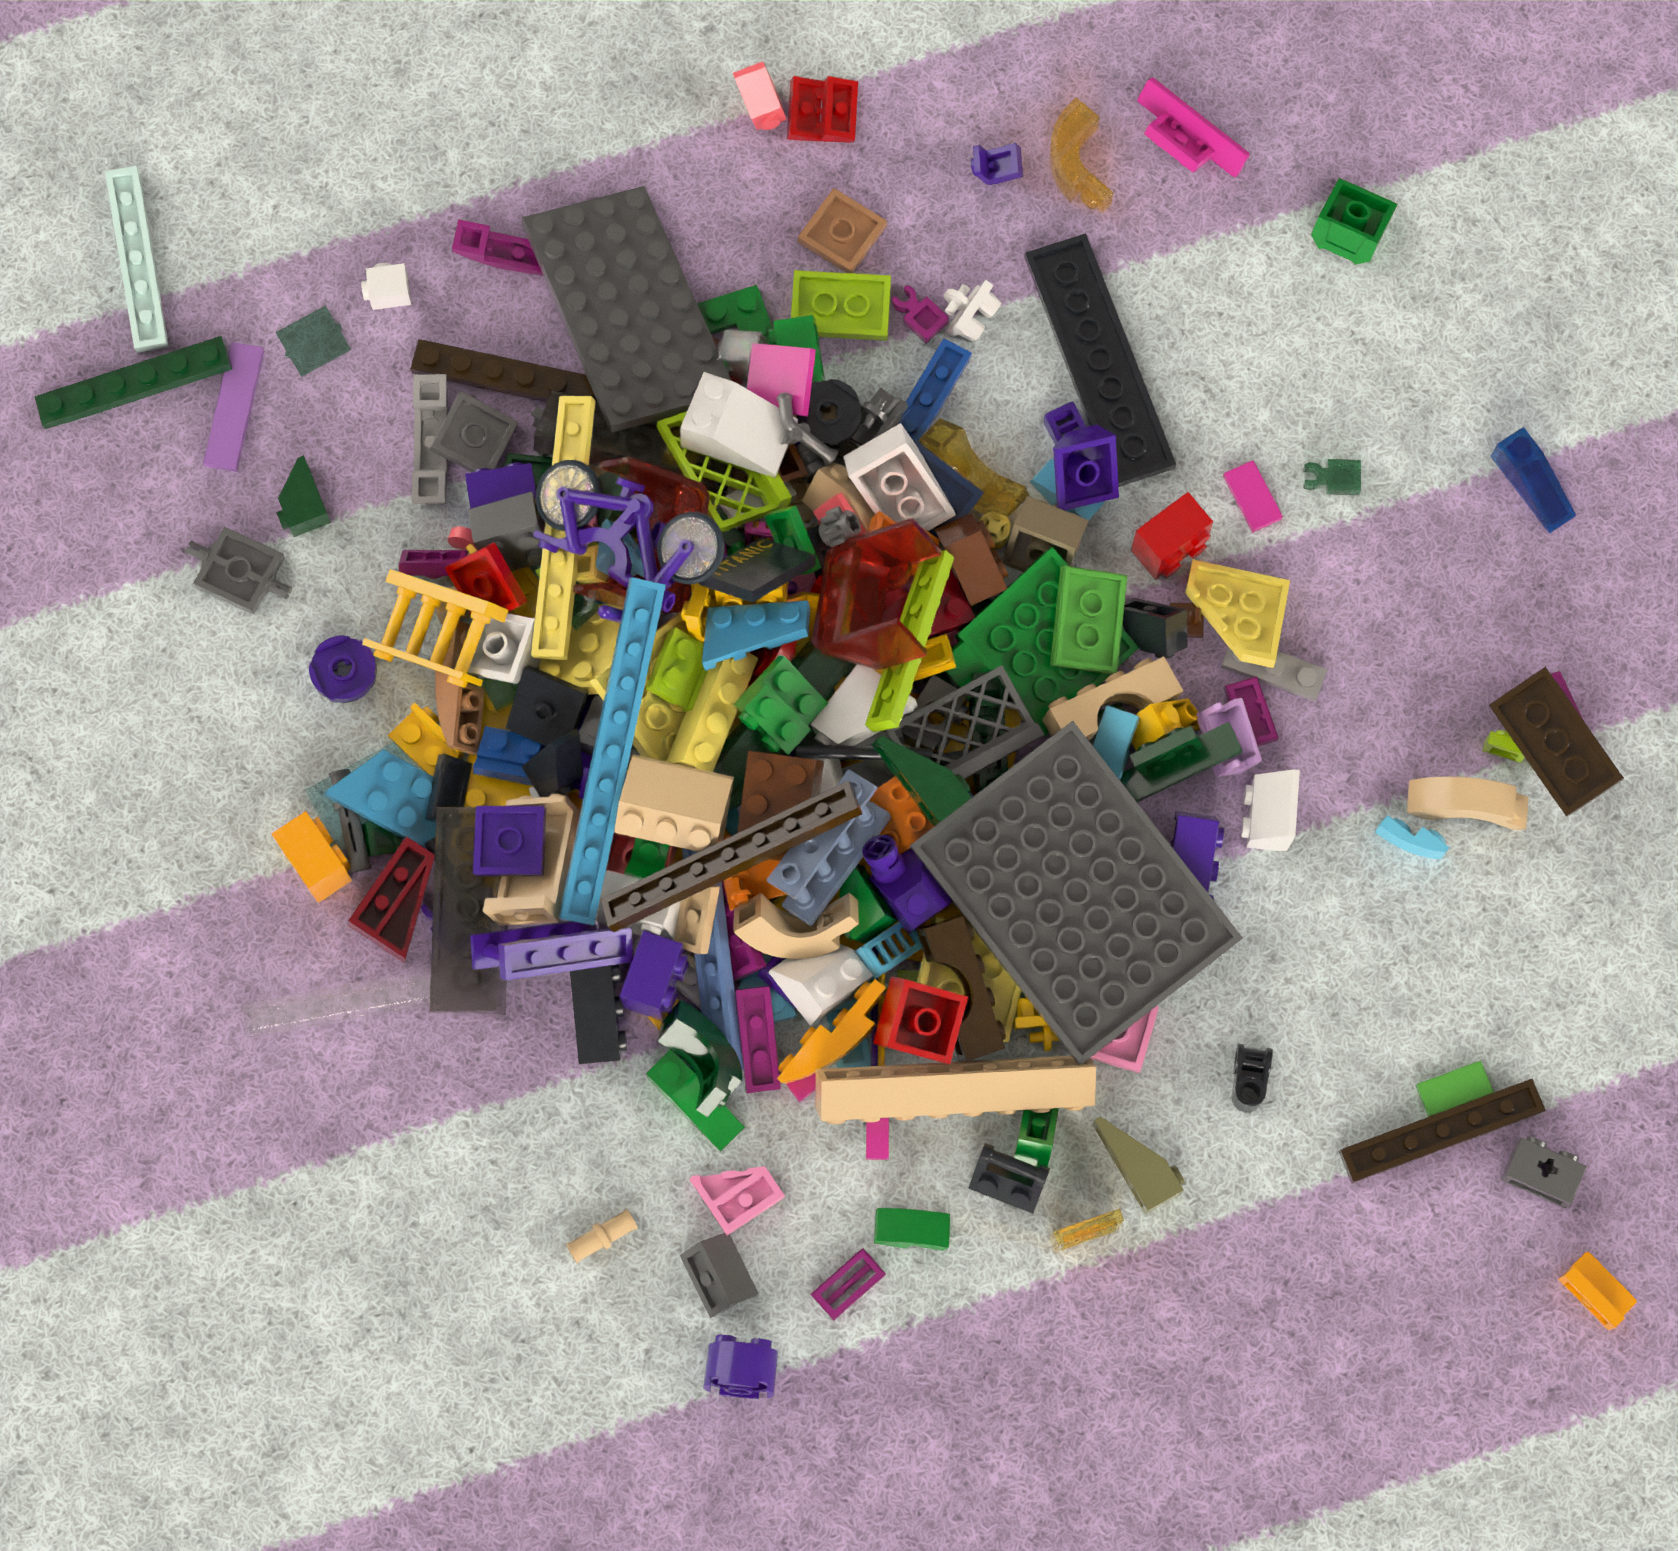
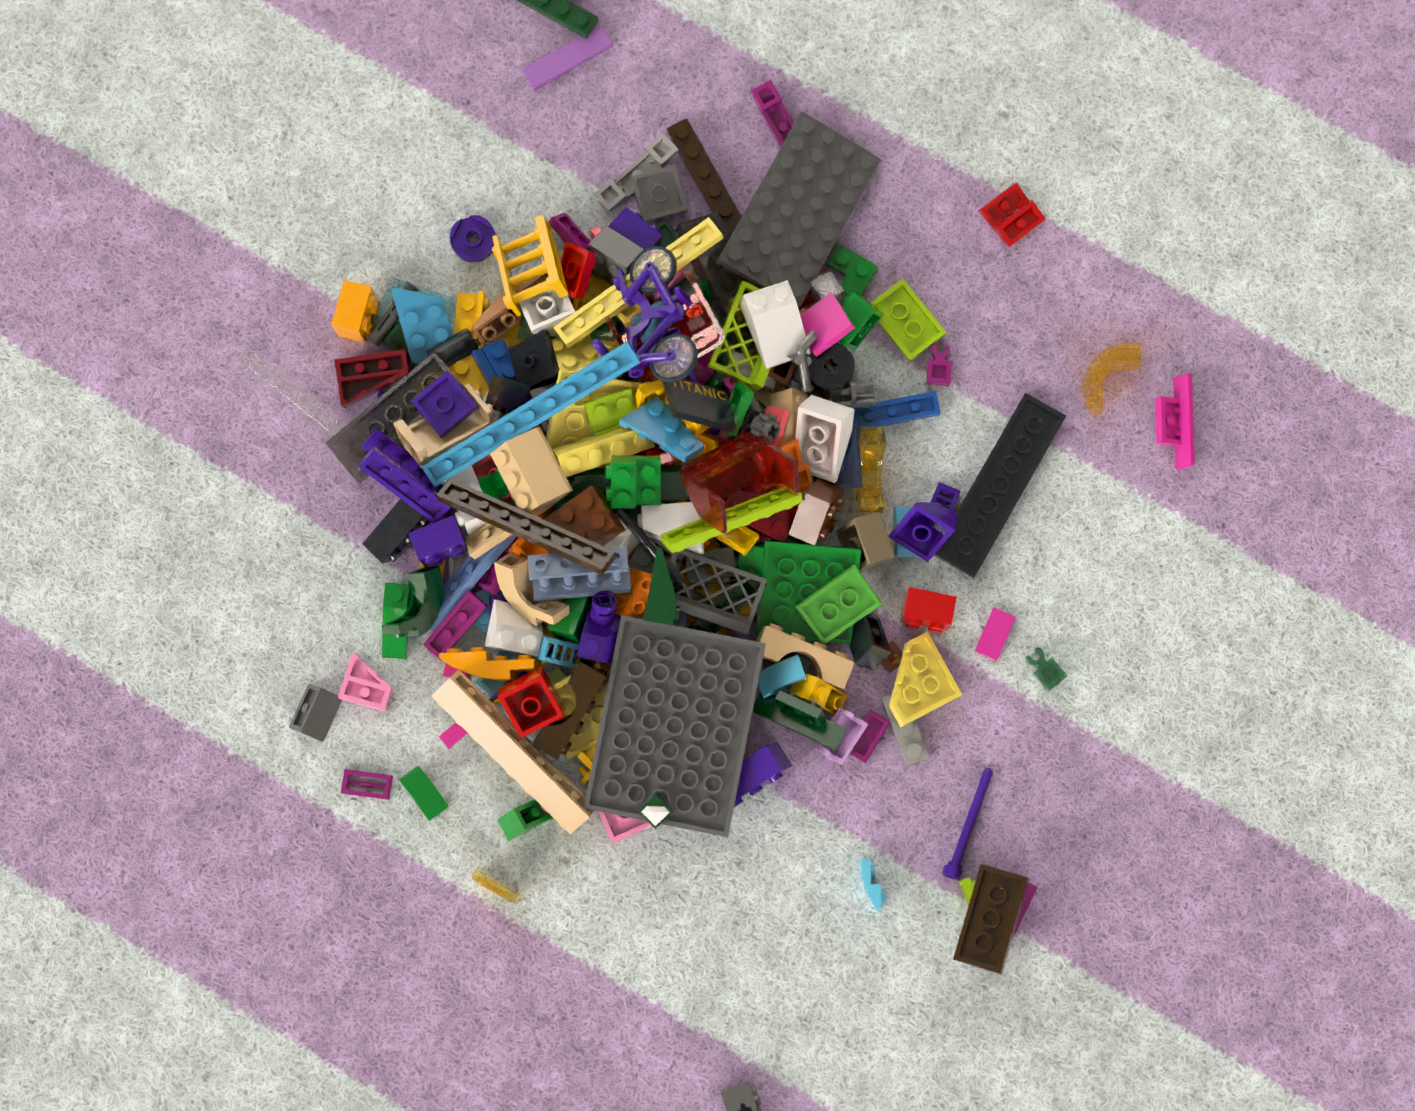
camera: 50 degrees right, 5 degrees up
(238, 570) = (480, 139): dark grey plate -> none
(301, 501) = (545, 137): dark green slope -> none
(313, 341) = (640, 66): clear green piece -> none
(386, 286) = (702, 76): white brick -> none
(601, 1236) = (284, 634): tan pin -> none
(741, 1367) = (270, 766): dark purple brick -> none
(760, 96) = (985, 175): slope -> none
(842, 231) = (949, 285): medium nougat plate -> none
(979, 299) = (955, 394): white hips -> none
(997, 164) = (1064, 334): dark purple bracket -> none
(998, 525) = (850, 506): light yellow wheel -> none
(1008, 1179) = (491, 821): black plate -> none
(1143, 1170) = (558, 891): olive slope -> none
(1152, 988) = (656, 811): none -> tile
(1252, 1071) = (662, 904): black piece -> none
(1271, 810) = (818, 793): white slope -> none
(1352, 222) = (1207, 555): green slope -> none
(1441, 1131) = (719, 1035): dark brown plate -> none
(1454, 1088) = (749, 1022): bright green tile -> none
(1465, 742) = (953, 868): none -> dark purple piece
(1467, 798) = (918, 897): tan arch -> none
(1533, 479) = (1142, 782): clear blue slope -> none

